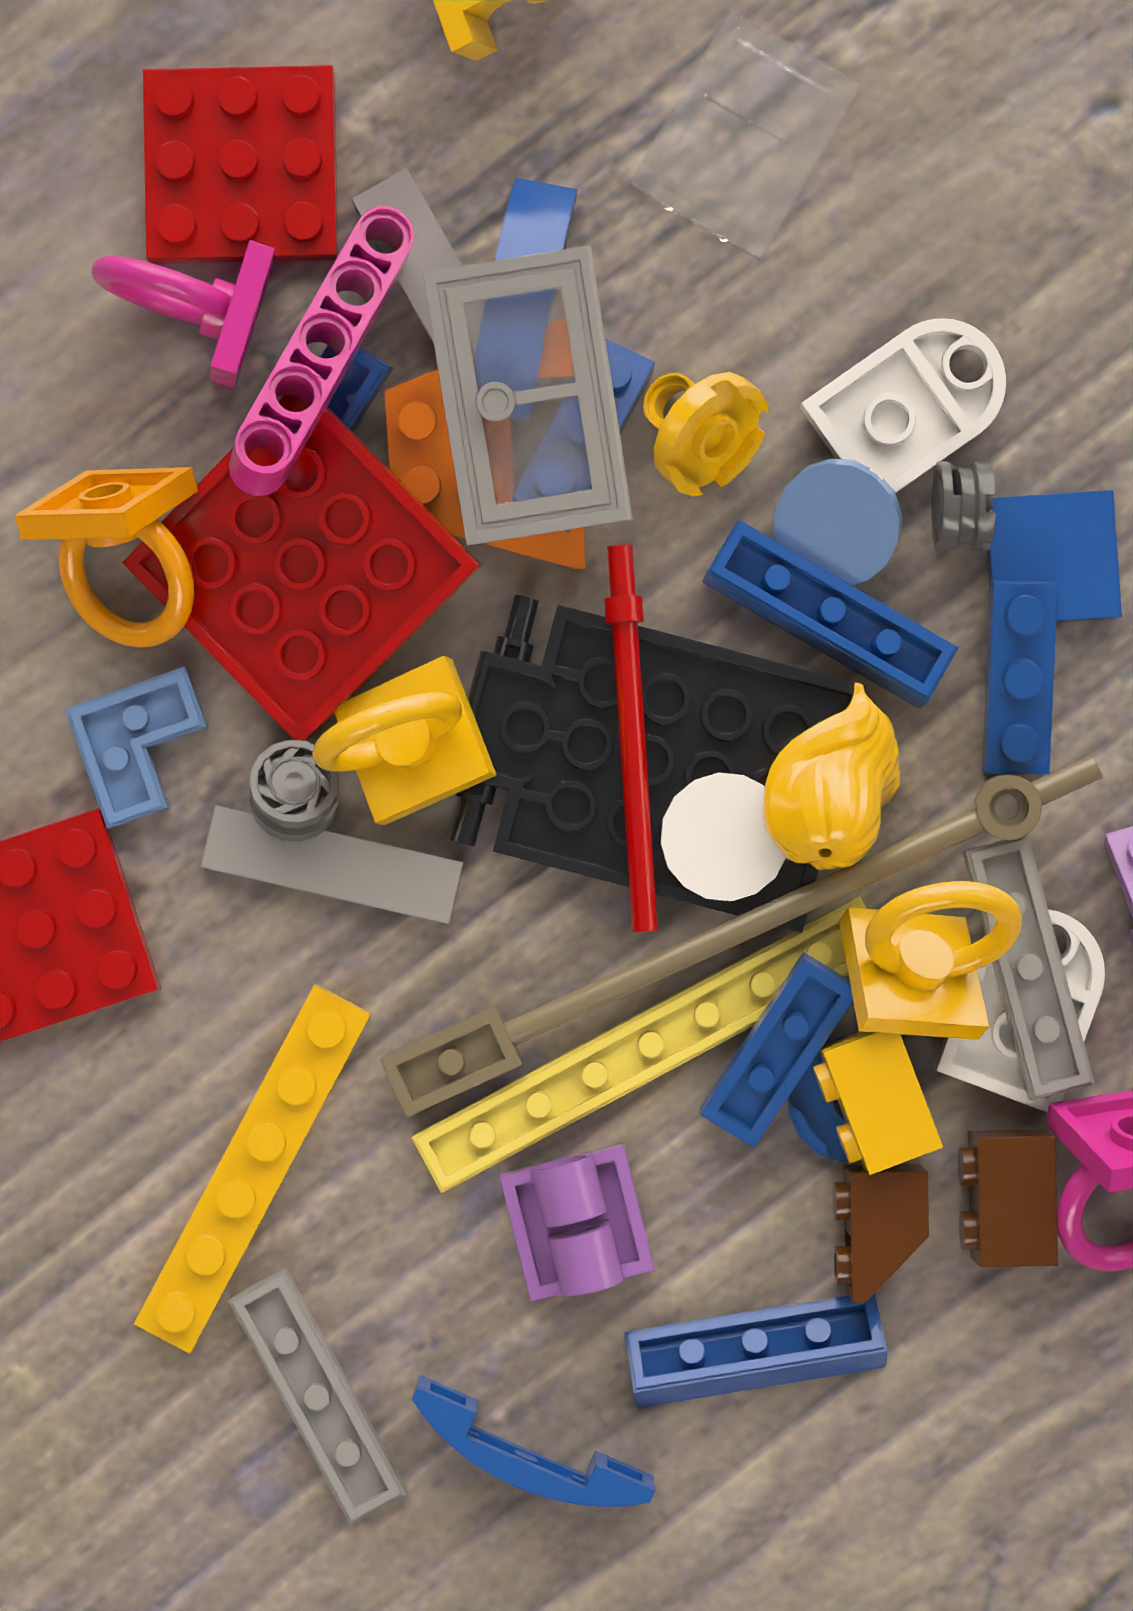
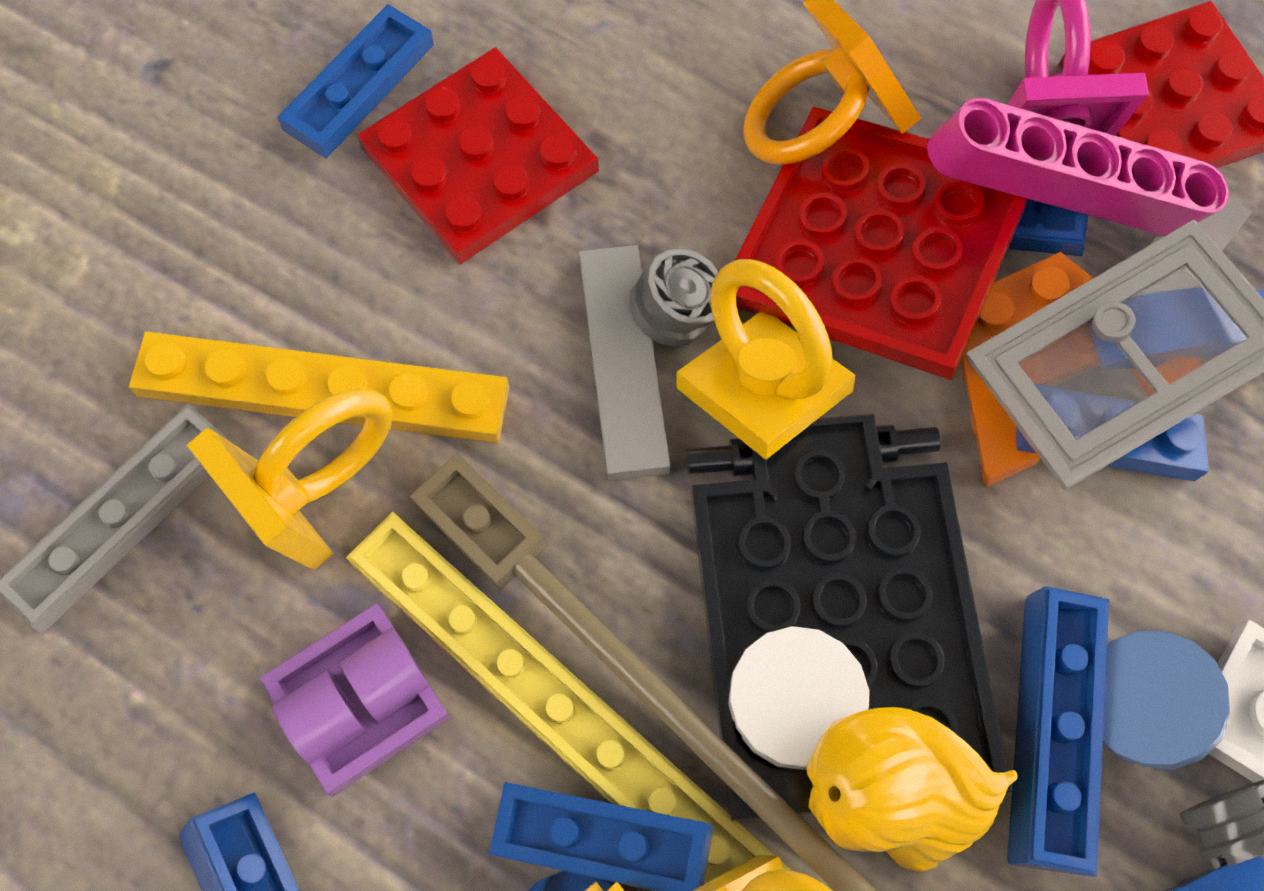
camera: 70 degrees right, 20 degrees down
(117, 736) = (670, 159): medium blue tile -> none
(366, 1242) = (269, 492): none -> yellow tile
(603, 1485) = (81, 826): blue slope -> none
(624, 613) = (968, 521): red bar -> none
(707, 431) = (1180, 537): yellow tile -> none

